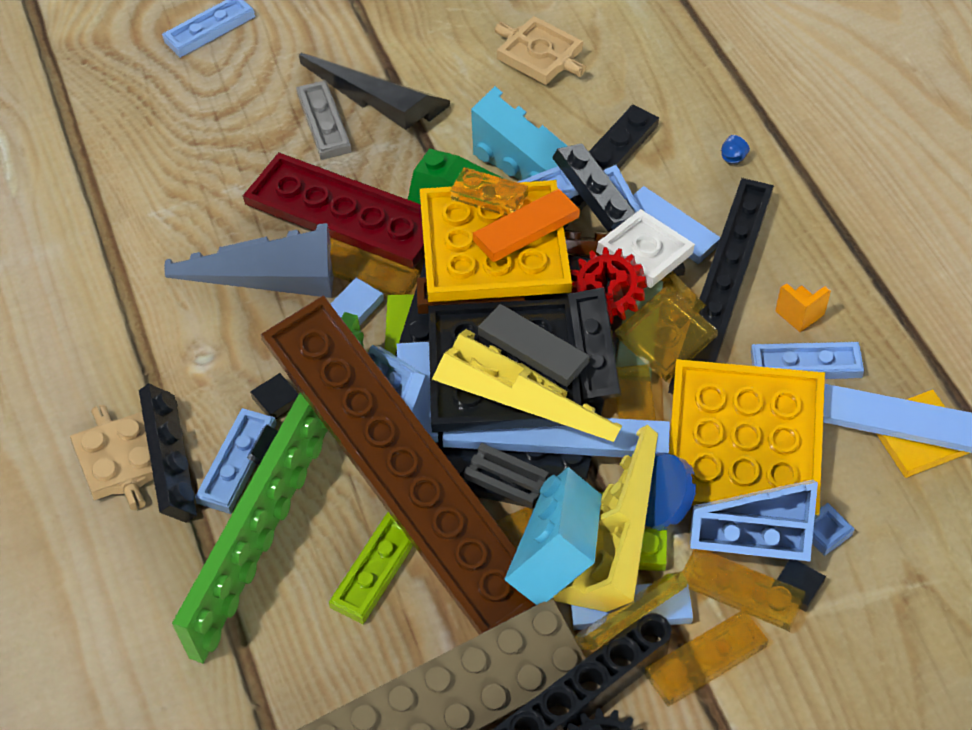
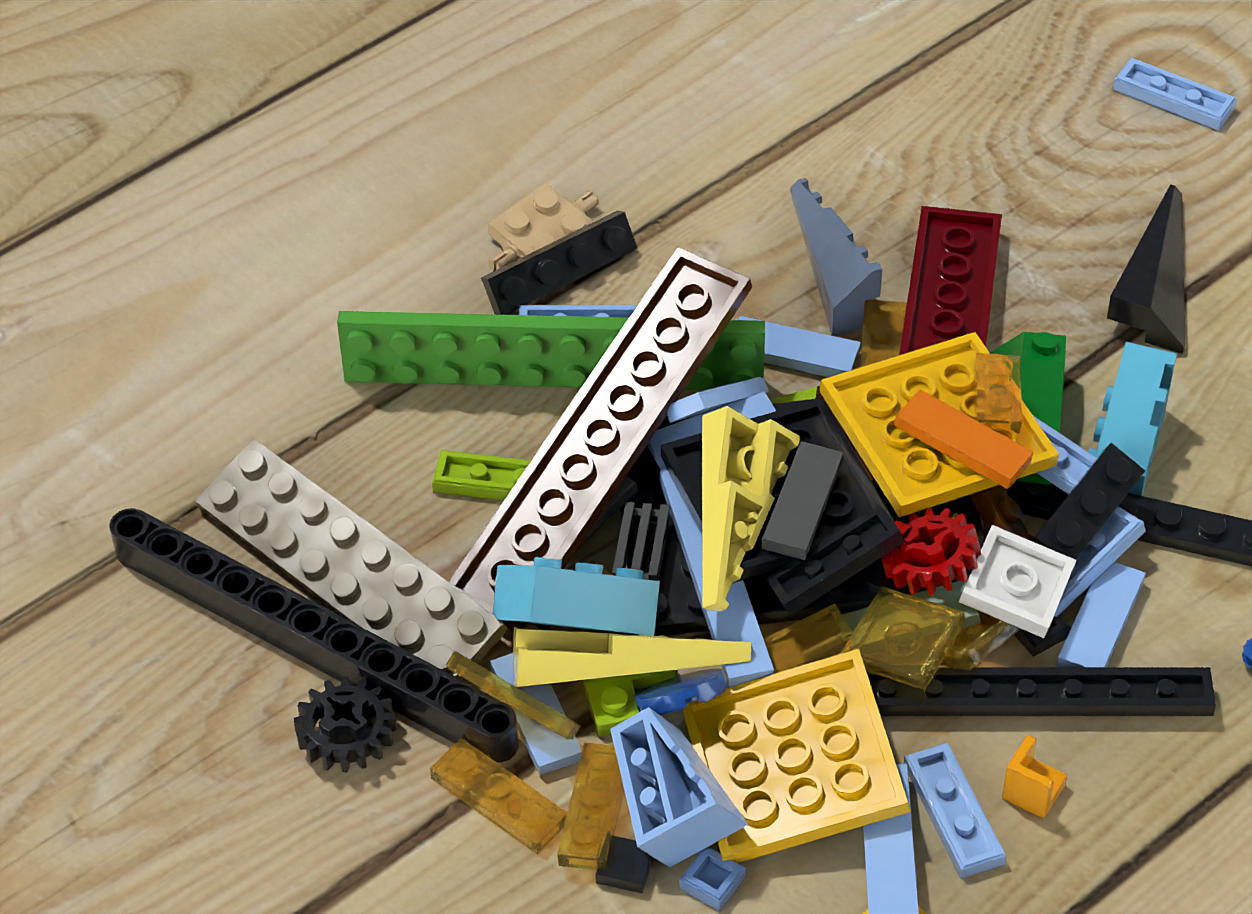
camera: 70 degrees right, 5 degrees down
(323, 120) = (1086, 242): light grey tile -> none

